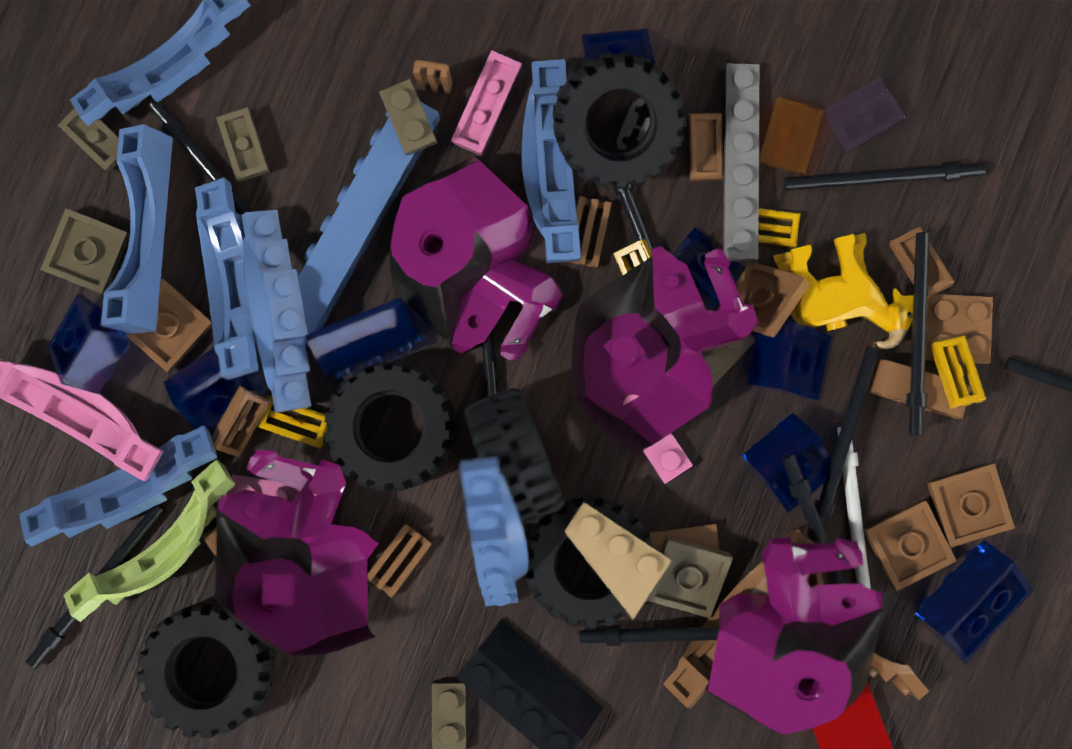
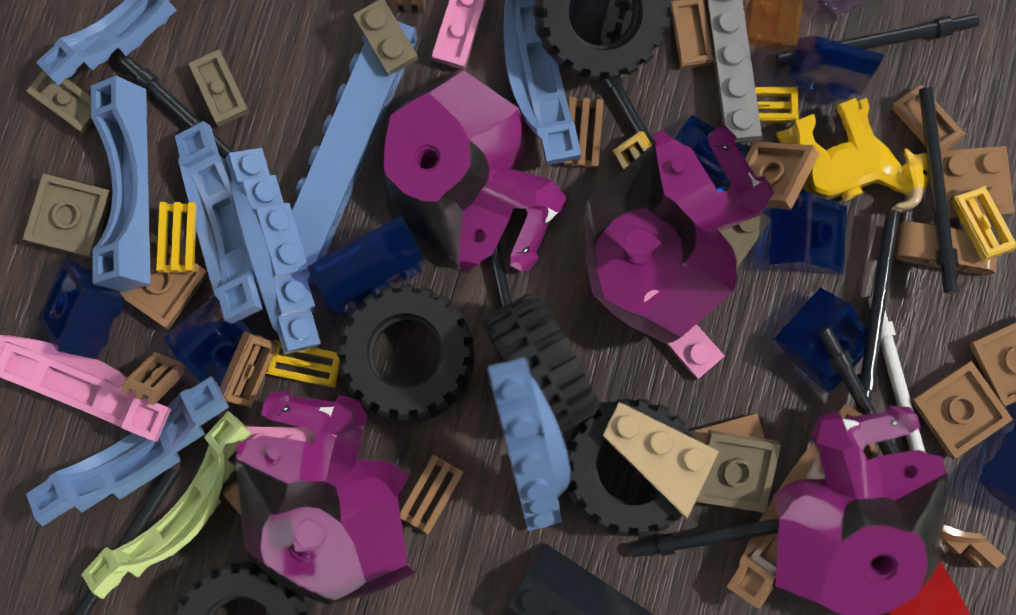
camera: 10 degrees left, 5 degrees down
(148, 437) = (160, 380): none -> medium nougat tile
(190, 259) = (177, 210): none -> yellow tile
(835, 200) = (833, 66): none -> clear blue slope

